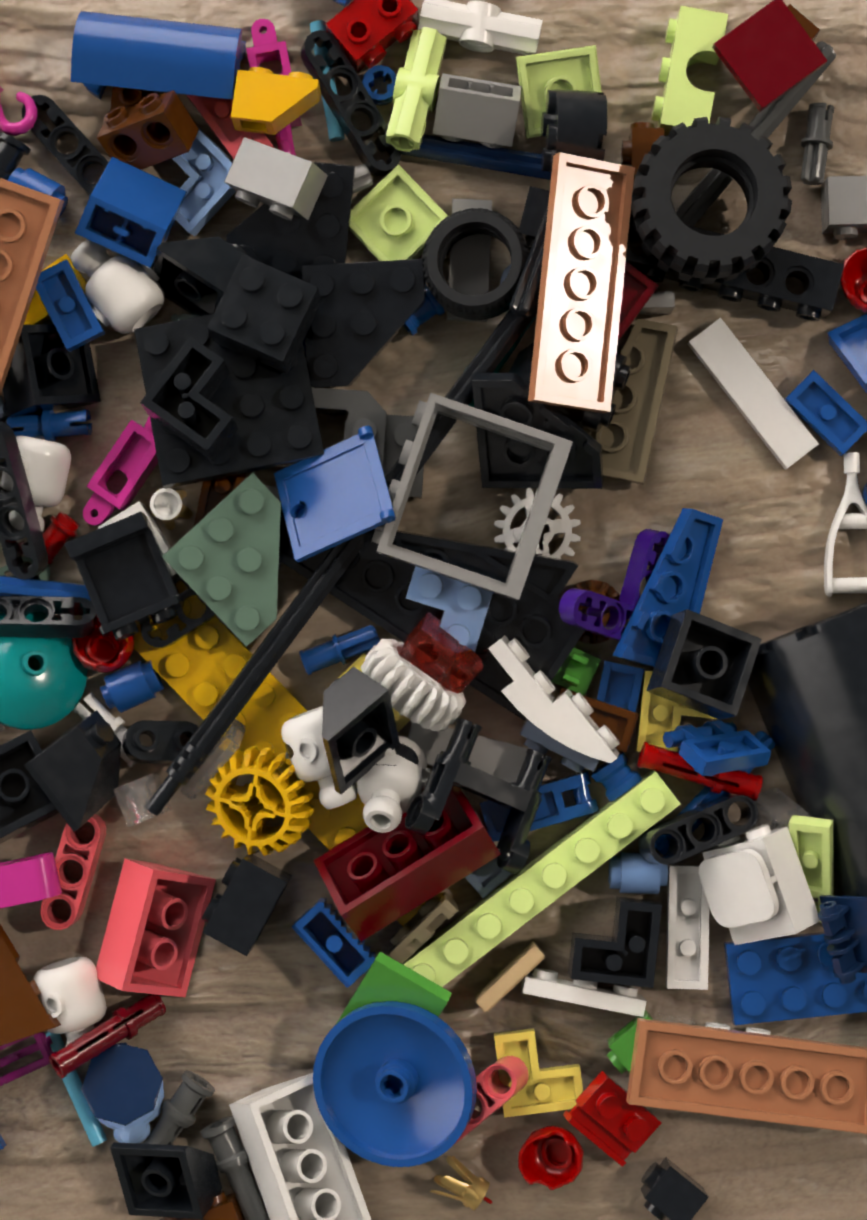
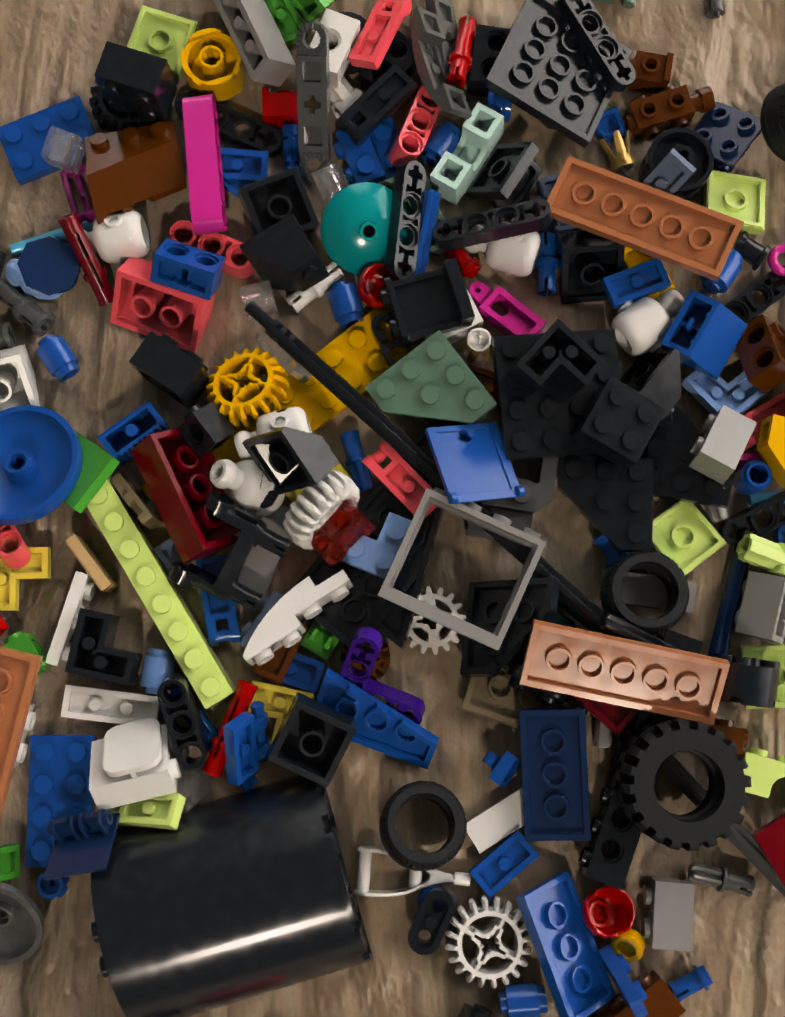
camera: 90 degrees right, 5 degrees down
(110, 897) = (187, 269): none -> blue brick
(164, 737) = (302, 323): black plate -> none
(241, 1058) = (58, 357): none -> blue brick
(309, 126) = (752, 477): none -> blue brick
(322, 847) = (205, 429): none -> black brick
(359, 590) = (398, 477): none -> coral plate
(616, 777) = (233, 663): blue wheel -> none
(710, 423) = (503, 767): none -> blue tile
(713, 358) = (555, 774): none -> dark blue plate
(793, 475) = (456, 822): none -> black tyre

